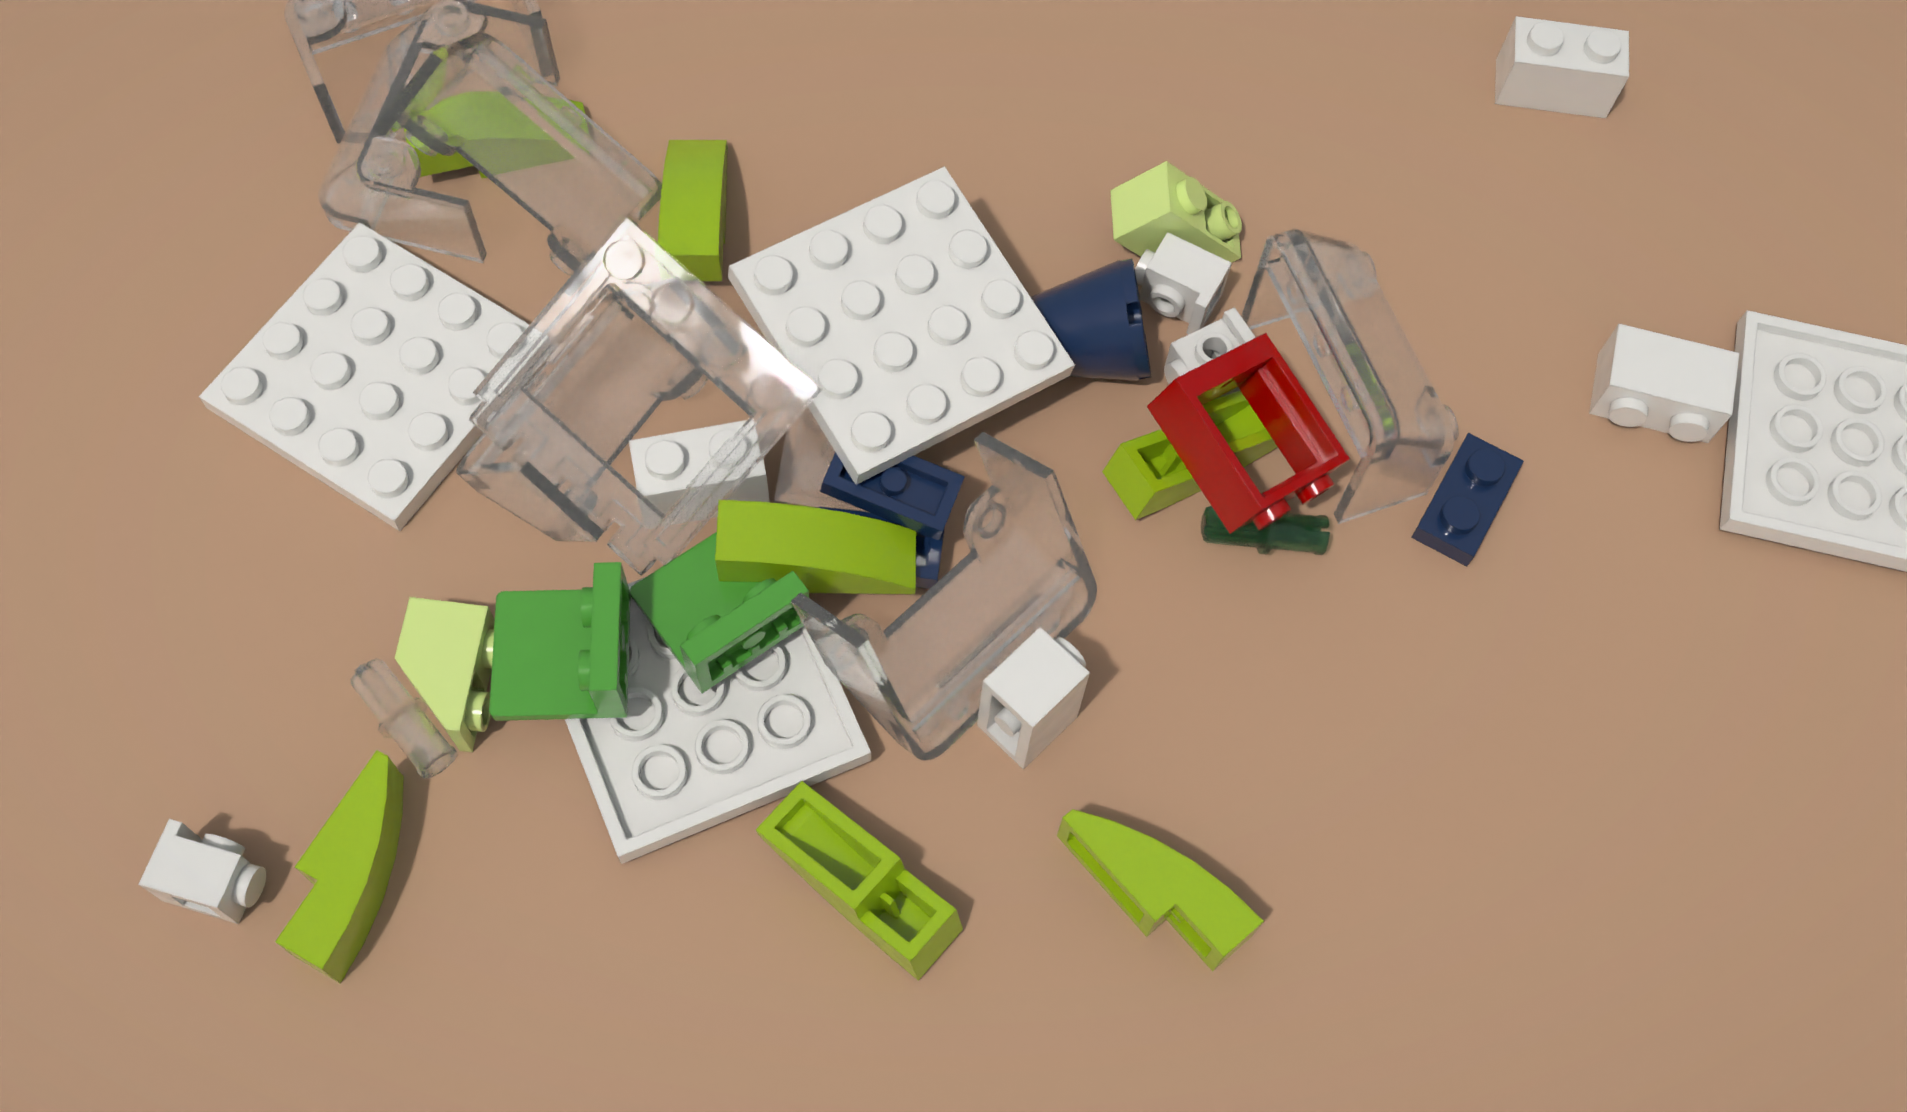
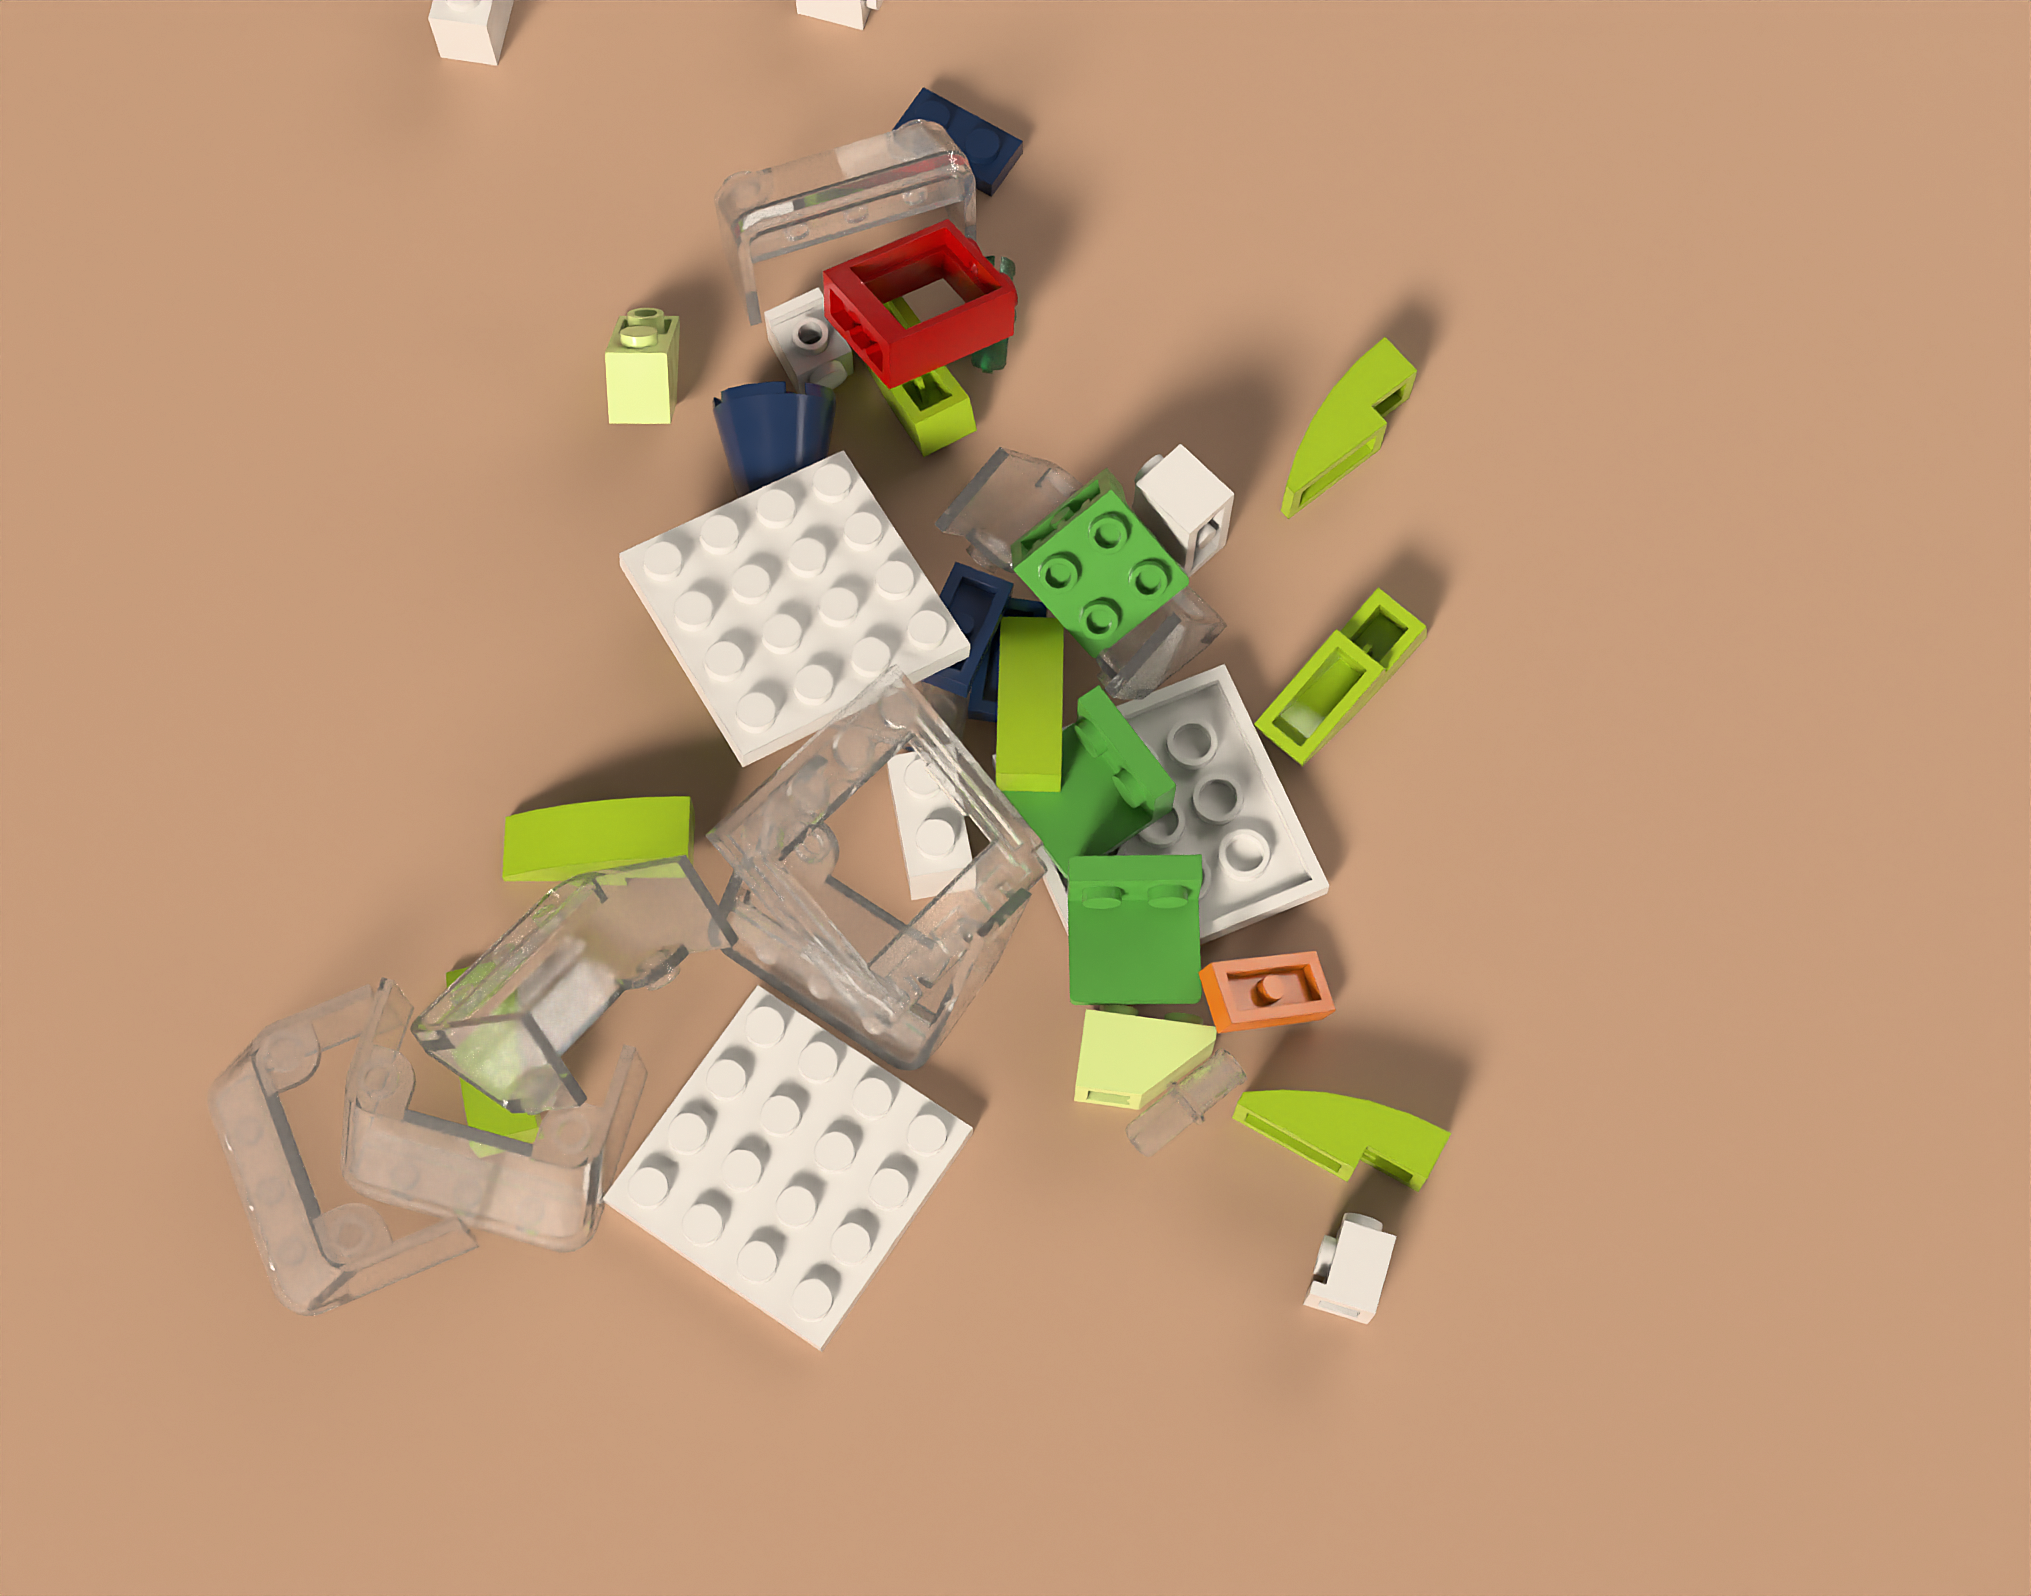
camera: 85 degrees left, 5 degrees up
(501, 788) = (1266, 991): none -> orange plate
(959, 603) = (1097, 565): none -> bright green bracket
(1182, 280) = (718, 359): white brick -> none

